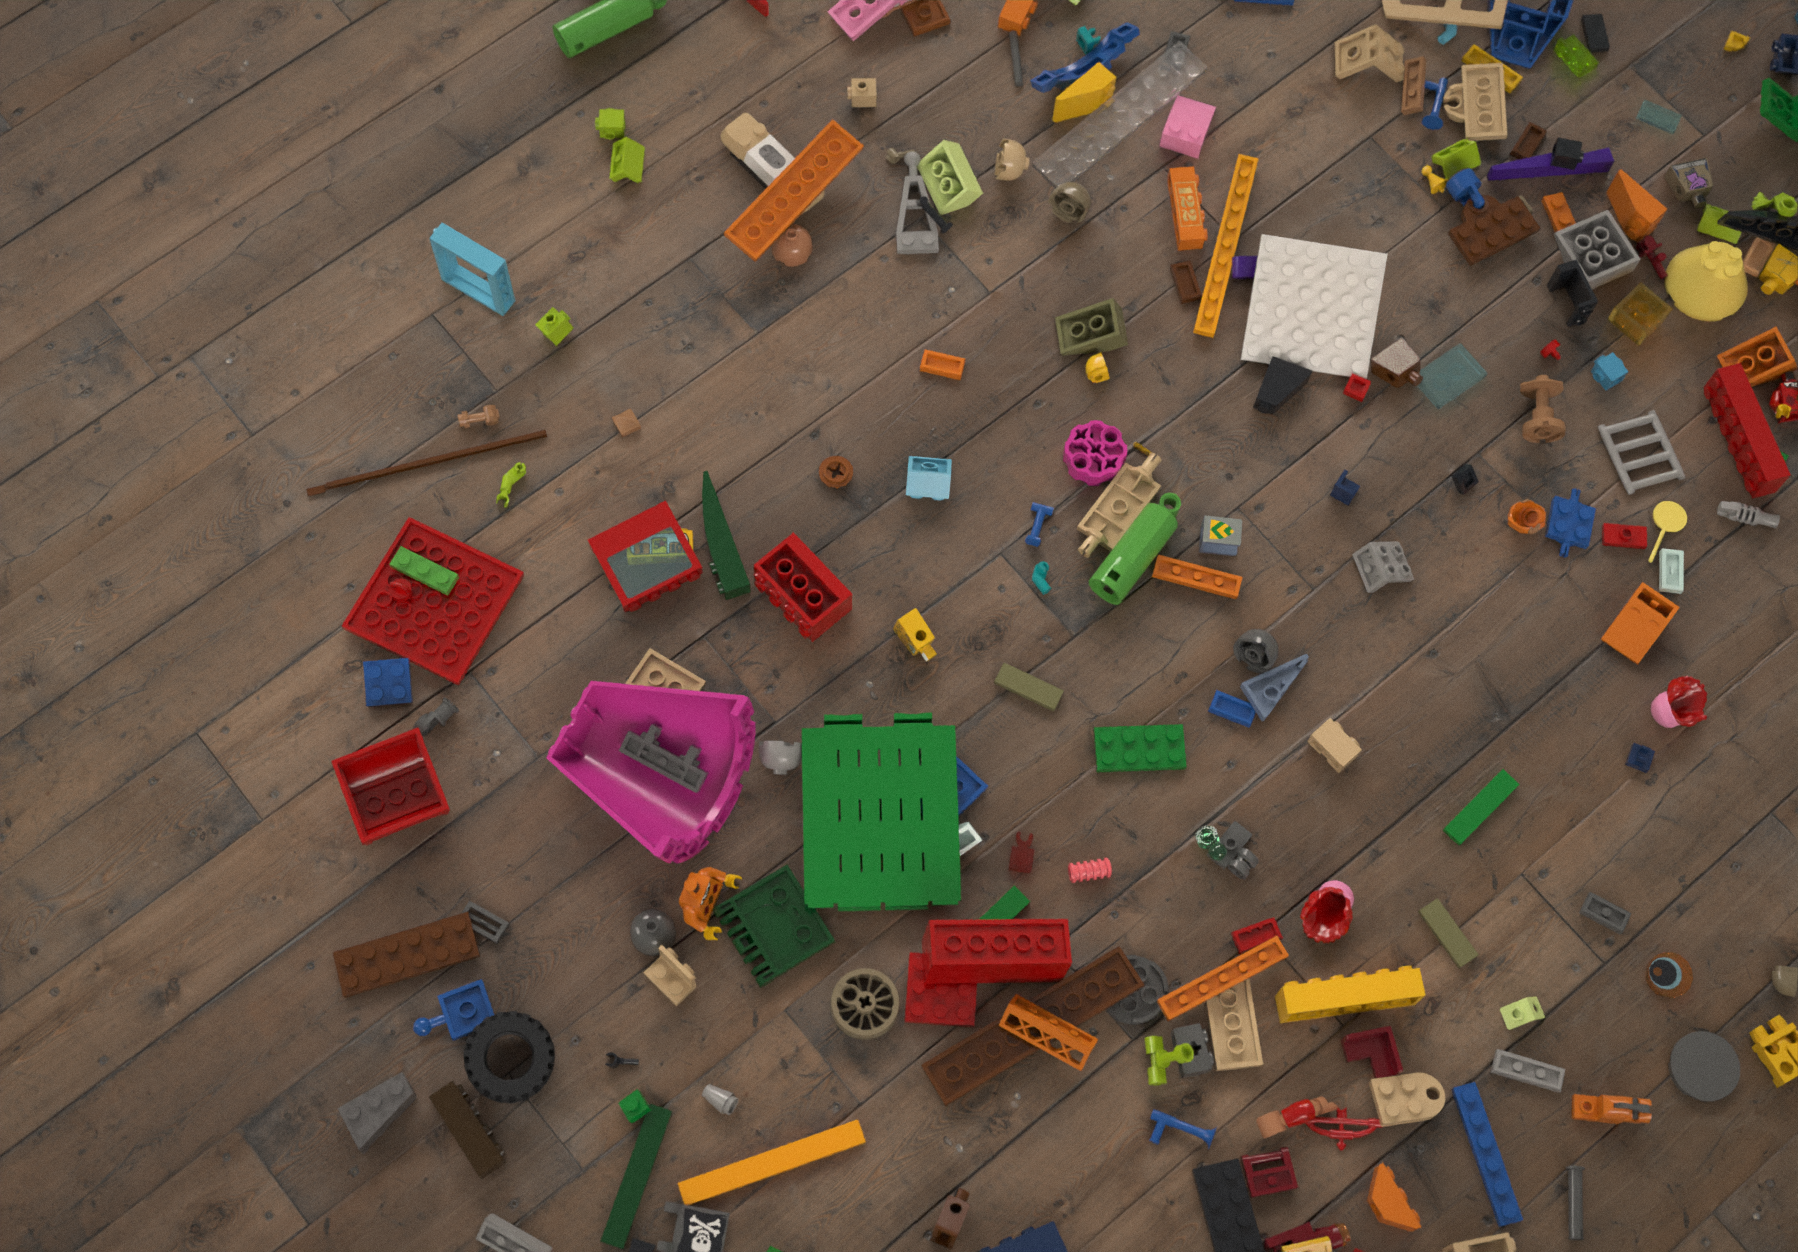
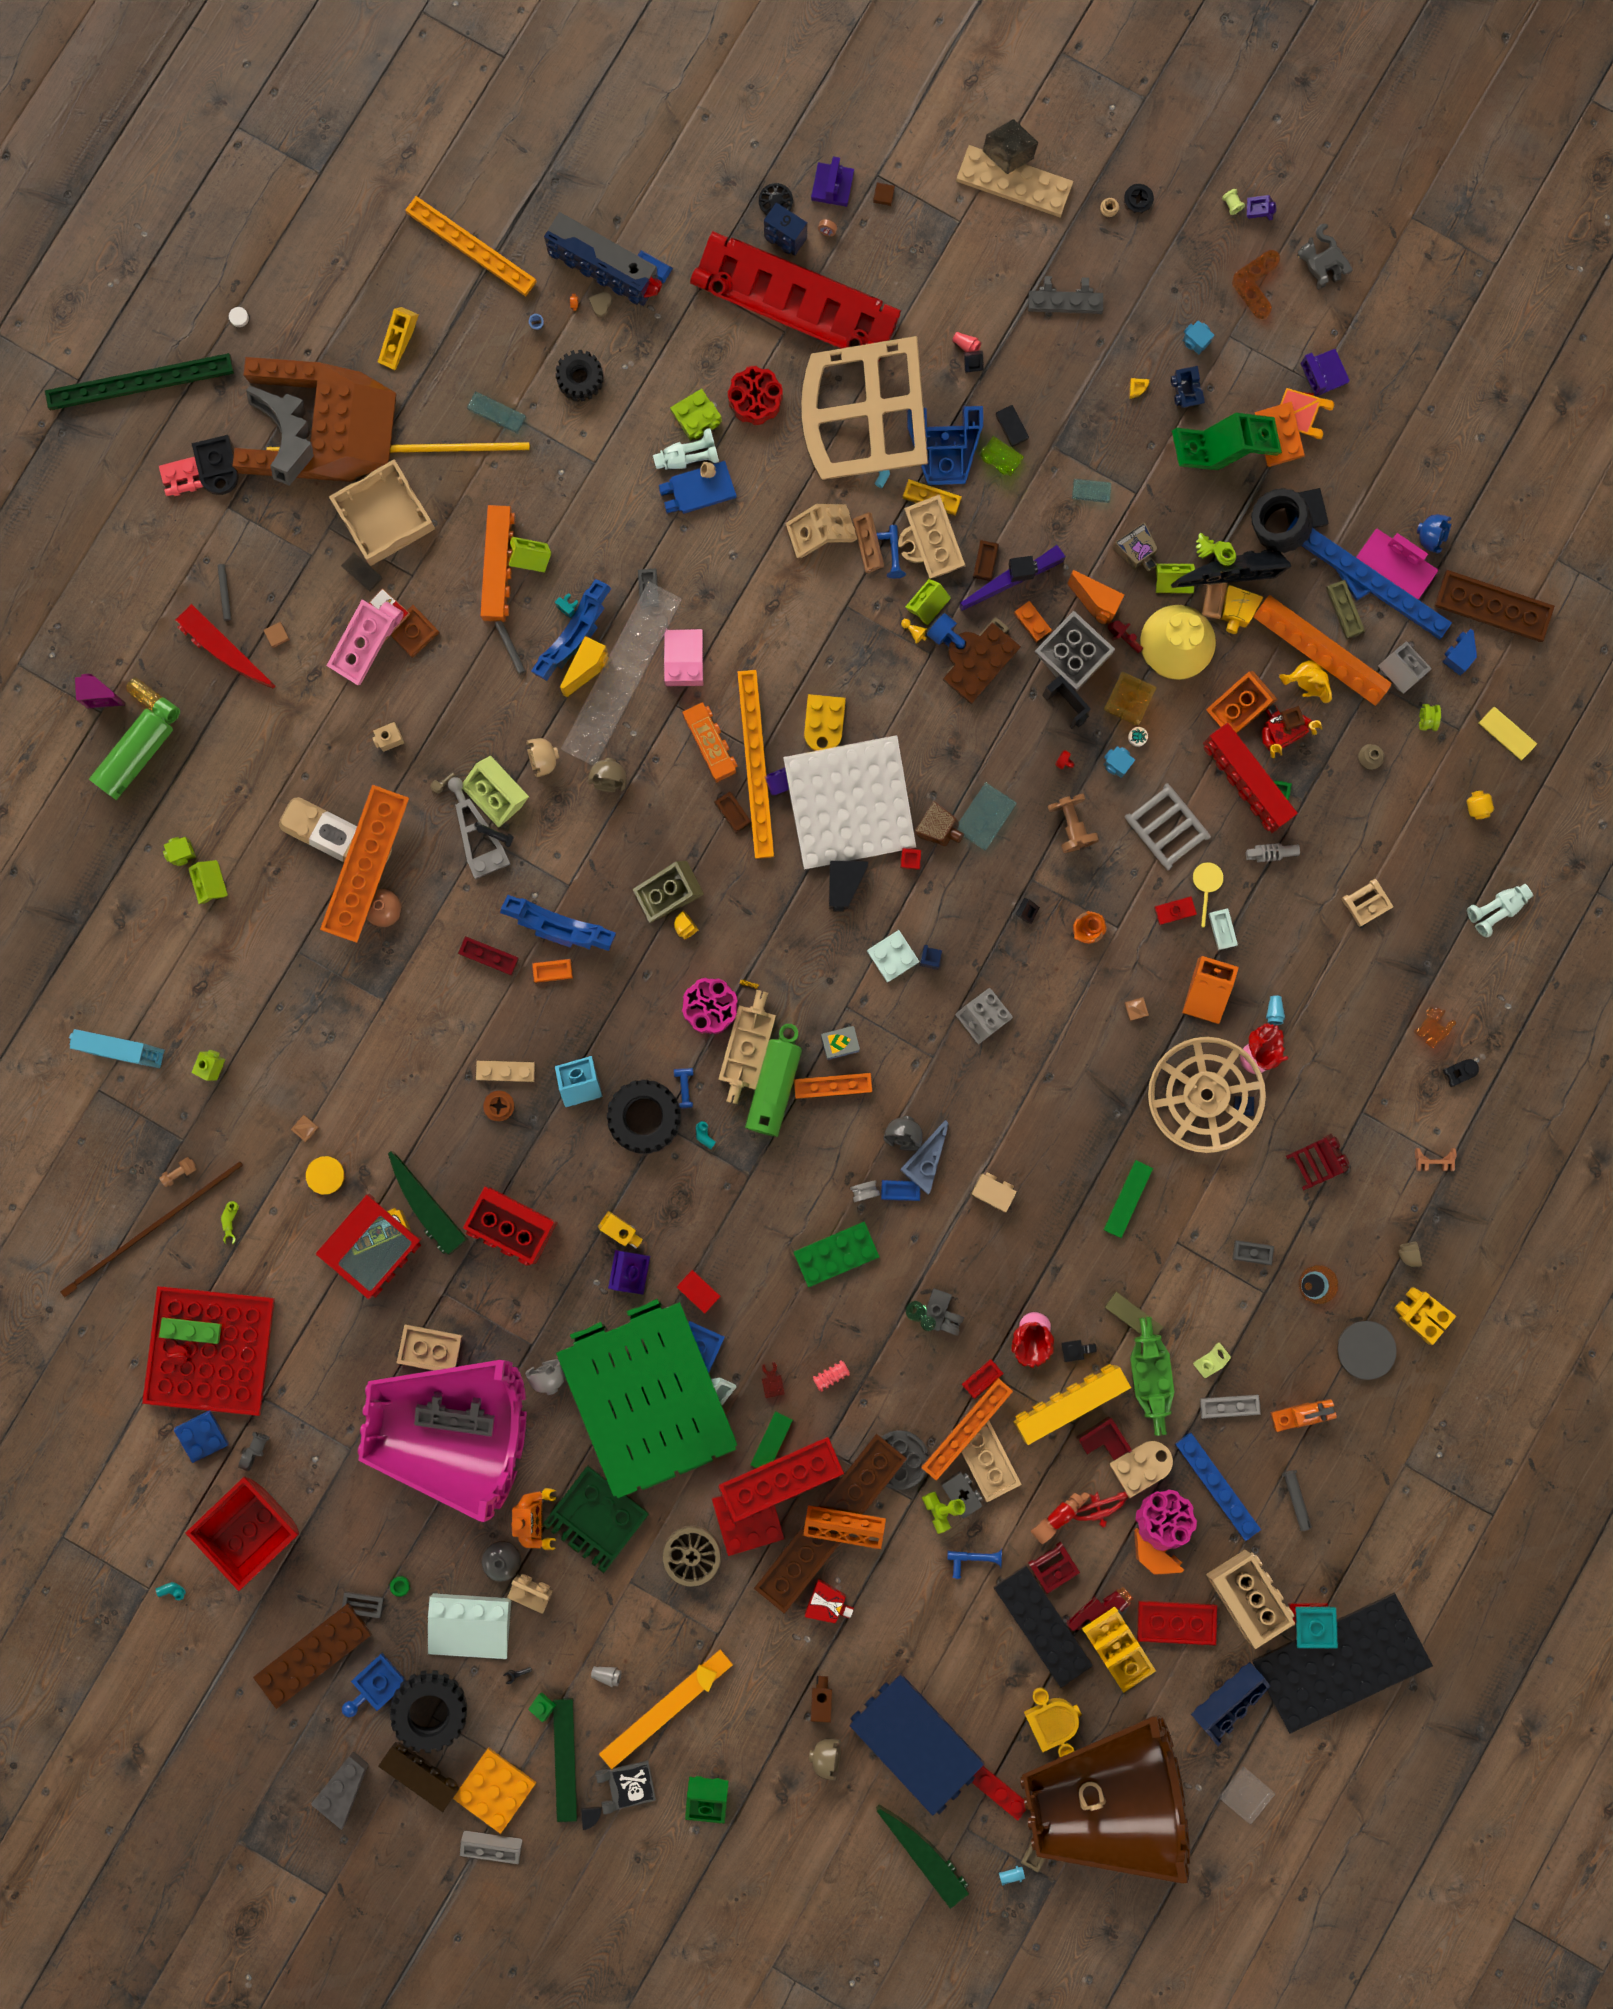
camera: 20 degrees left, 15 degrees up
(288, 828) = (171, 1588): none -> teal arm
(532, 917) = (400, 1586): none -> green tile
(544, 1179) = (494, 1790): none -> light orange plate
(589, 987) = (468, 1626): none -> light aqua slope
(628, 475) = (325, 1175): none -> yellow tile
(830, 1141) = (705, 1677): none -> yellow tile
(856, 442) = (505, 1071): none -> tan plate
(882, 326) = (488, 955): none -> dark red plate
(910, 681) = (629, 1272): none -> dark purple bracket
(961, 323) = (557, 927): none -> blue piece
(977, 729) = (698, 1291): none -> red panel
(991, 507) = (644, 1090): none -> black tyre
(997, 1113) = (827, 1603): none -> red torso
(1028, 687) = (727, 1236): olive tile -> none
(1195, 691) = (865, 1191): none -> light grey wheel
(1305, 475) = (893, 956): none -> light aqua plate
(1313, 224) = (824, 720): none -> yellow plate
(1369, 945) = (1074, 1350): none -> black plate
(1417, 1163) = (1184, 1526): none -> dark pink connector
(1450, 1000) = (1152, 1376): none -> bright green plate
(1551, 618) = (1136, 1009): none -> medium nougat tile
(1570, 522) = (1126, 916): blue plate -> none
(1607, 713) = (1200, 1106): none -> tan dish
(1636, 356) = (1138, 736): none -> tile
(1705, 671) = (1275, 1011): none -> medium azure cone
(1723, 839) = (1330, 1156): none -> dark red plate

